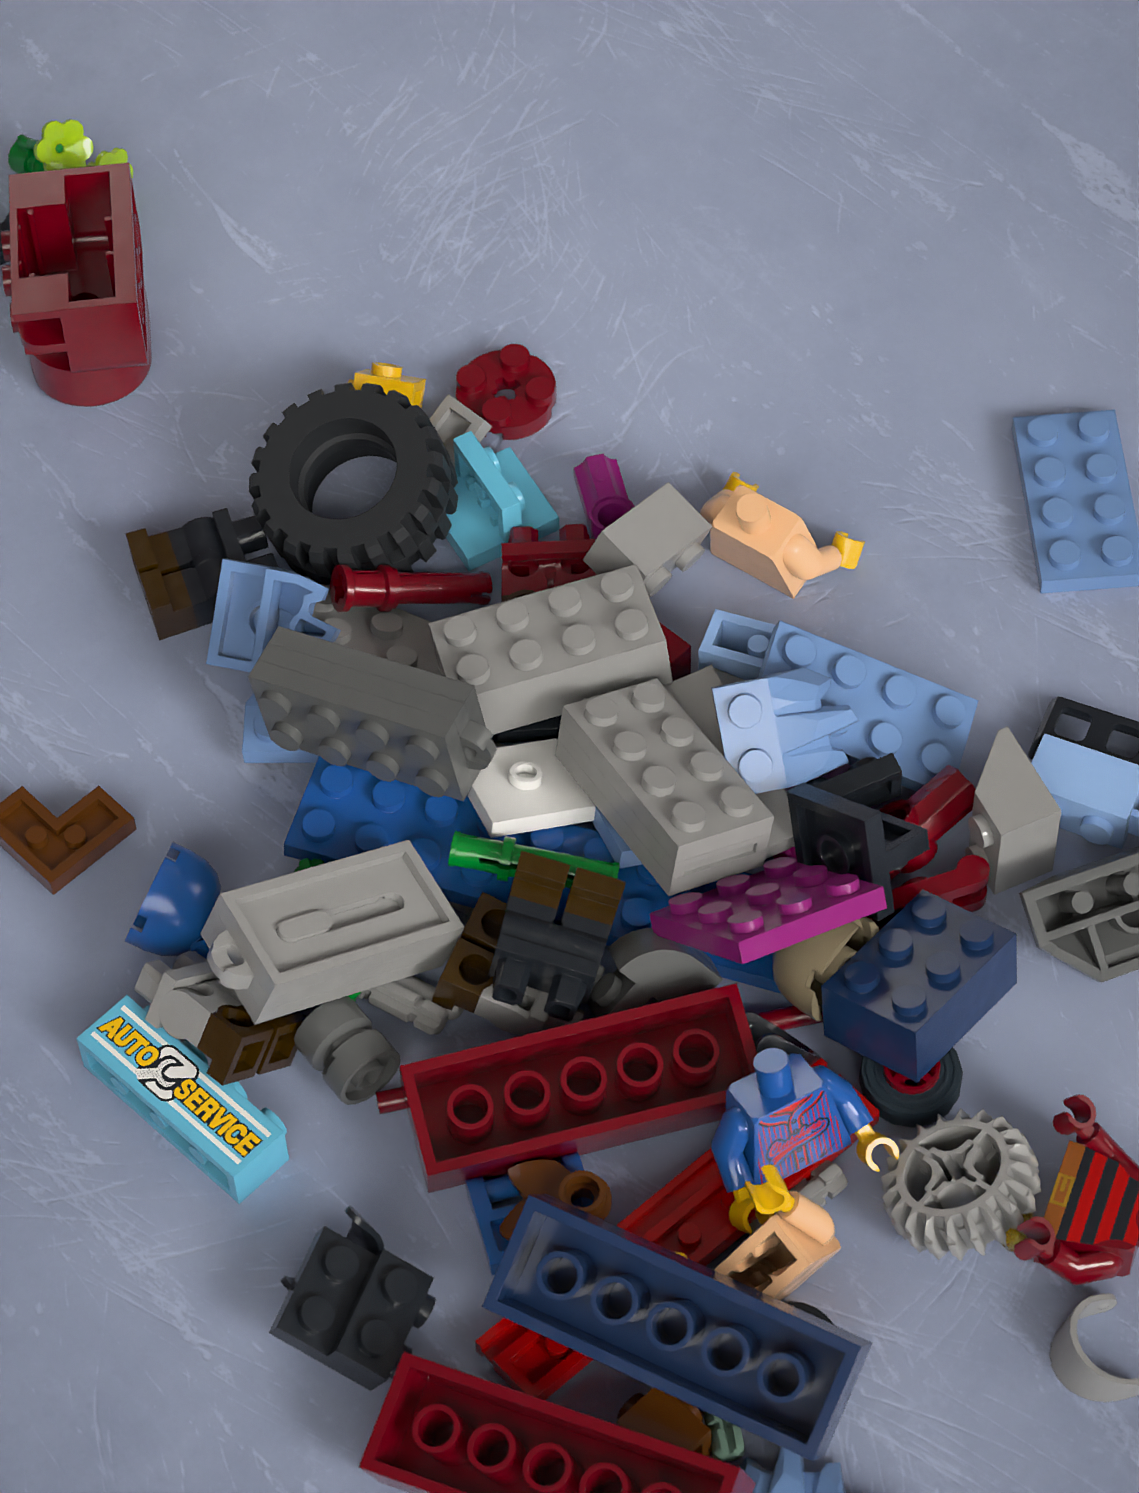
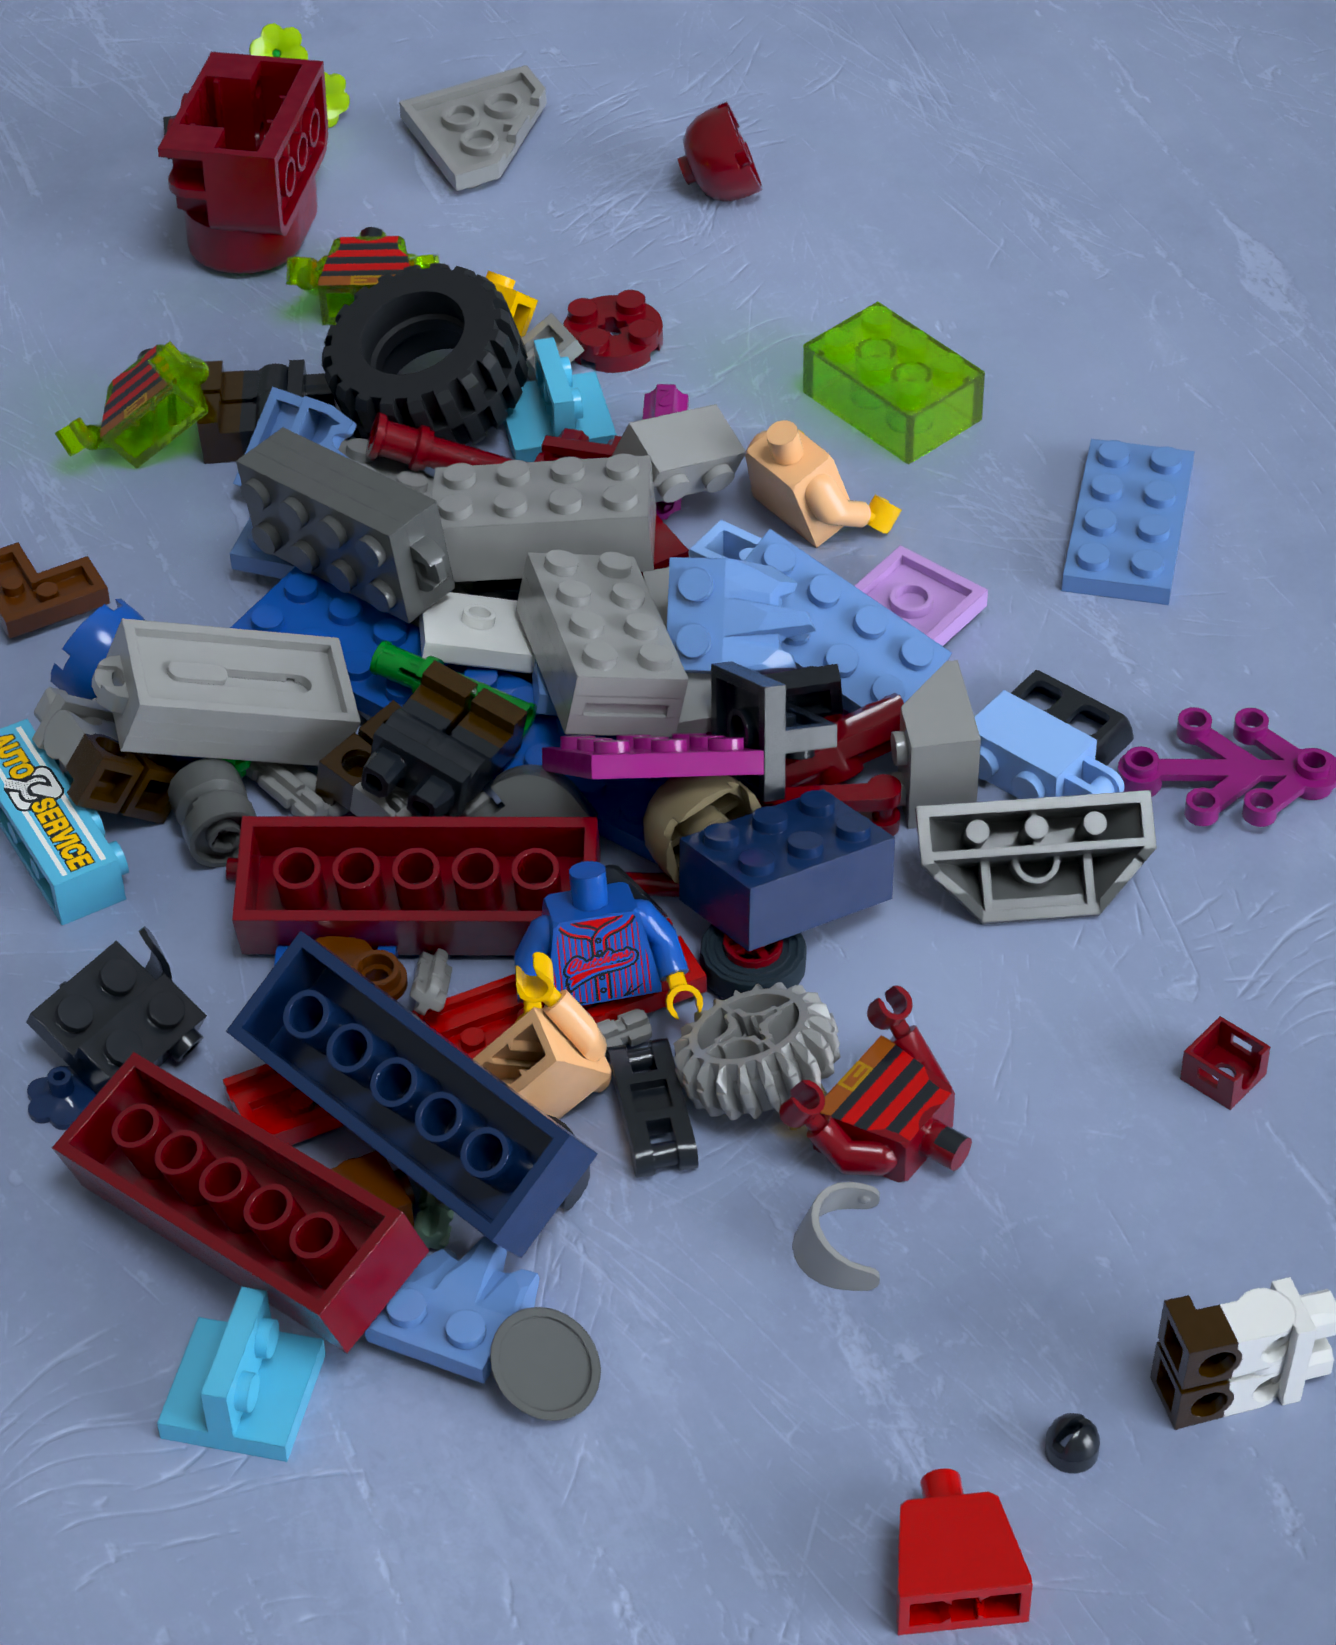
camera: 15 degrees right, 10 degrees down
(88, 598) = (145, 406): none -> clear neon green torso
(243, 386) = (350, 267): none -> torso
(273, 171) = (476, 124): none -> light grey plate
(321, 1401) = (58, 1097): none -> dark blue plant
(537, 164) = (719, 156): none -> dark red cylinder
(629, 1185) = (431, 982): none -> light grey axle
(805, 397) = (893, 382): none -> clear neon green brick
(880, 1260) = (652, 1105): none -> black plate
(919, 636) = (924, 594): none -> lavender plate

